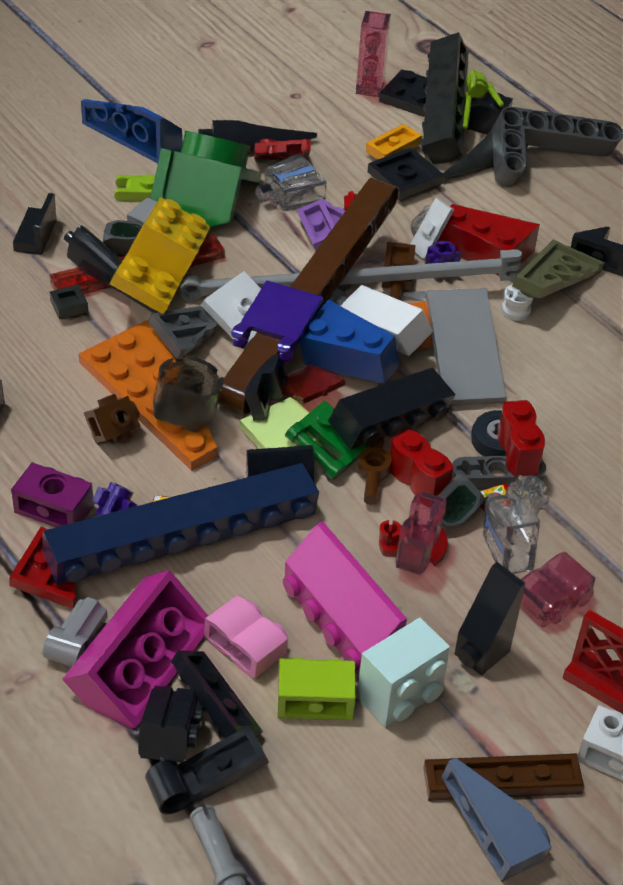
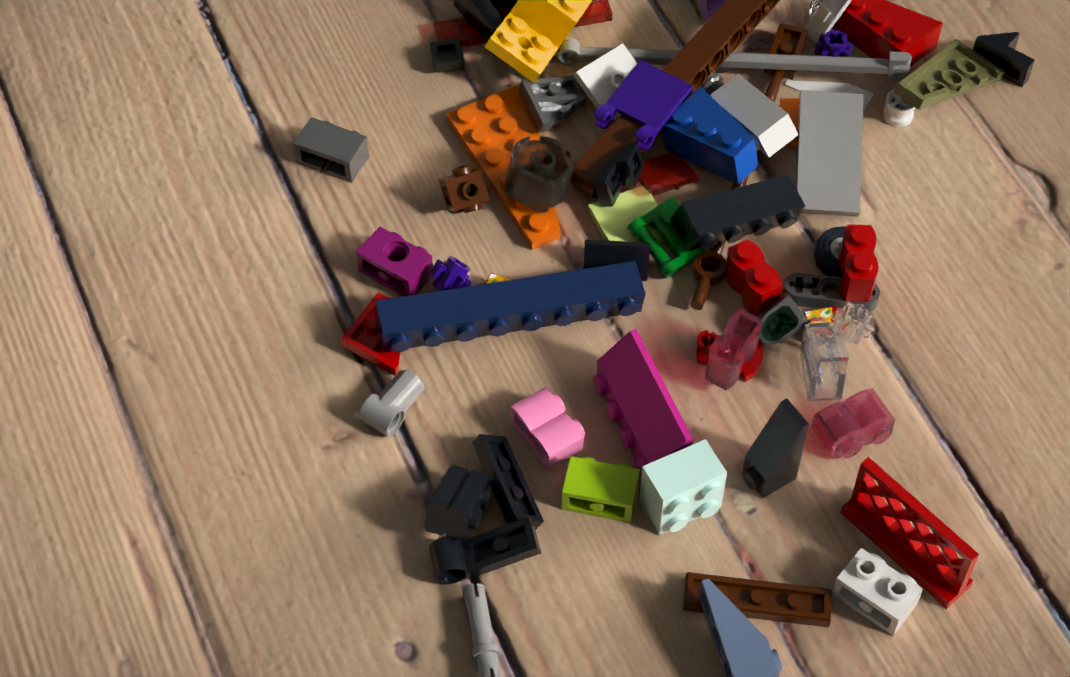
camera: 15 degrees right, 10 degrees up
(137, 649) = (445, 423): dark pink slope -> none

